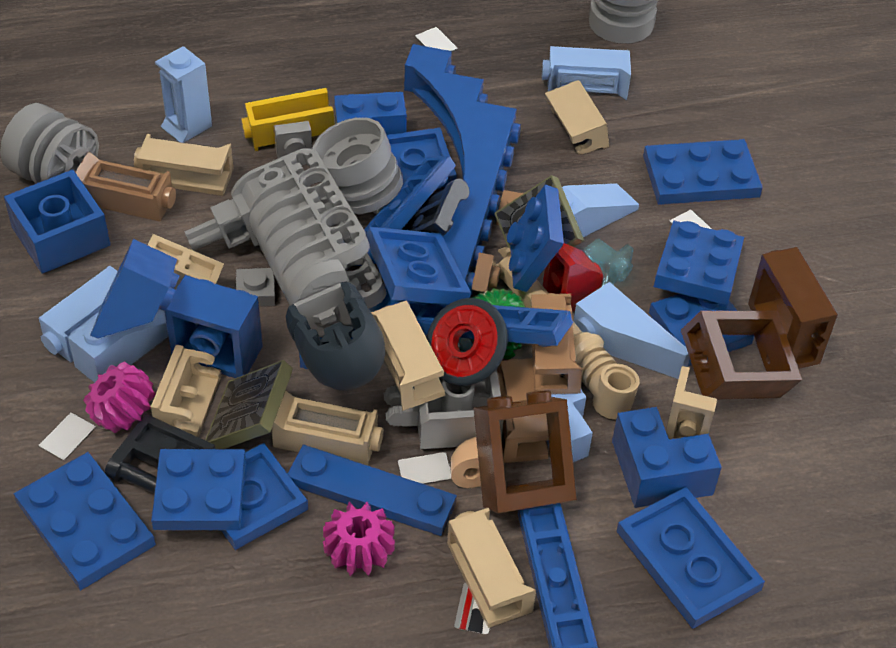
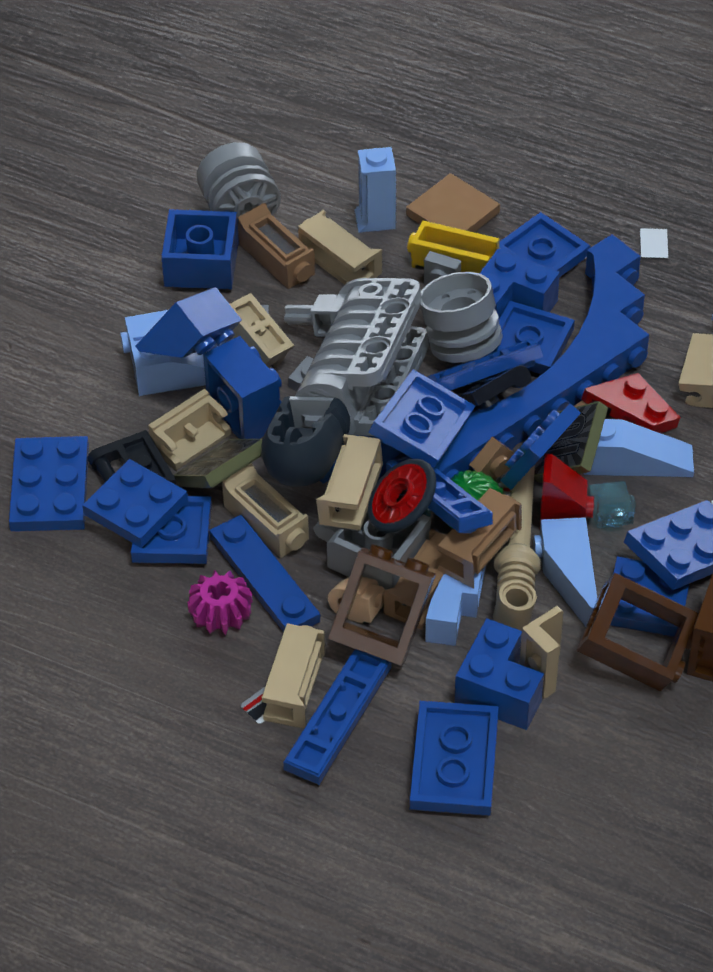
camera: 40 degrees right, 0 degrees up
(67, 436) = (87, 418): white sticker -> none
(119, 397) = (135, 407): dark pink gear -> none
(246, 82) = (453, 205): none -> medium nougat tile
(358, 76) = (546, 244): none -> blue plate
(425, 468) = (317, 582): white sticker -> none
(537, 165) = (634, 402): none -> wing

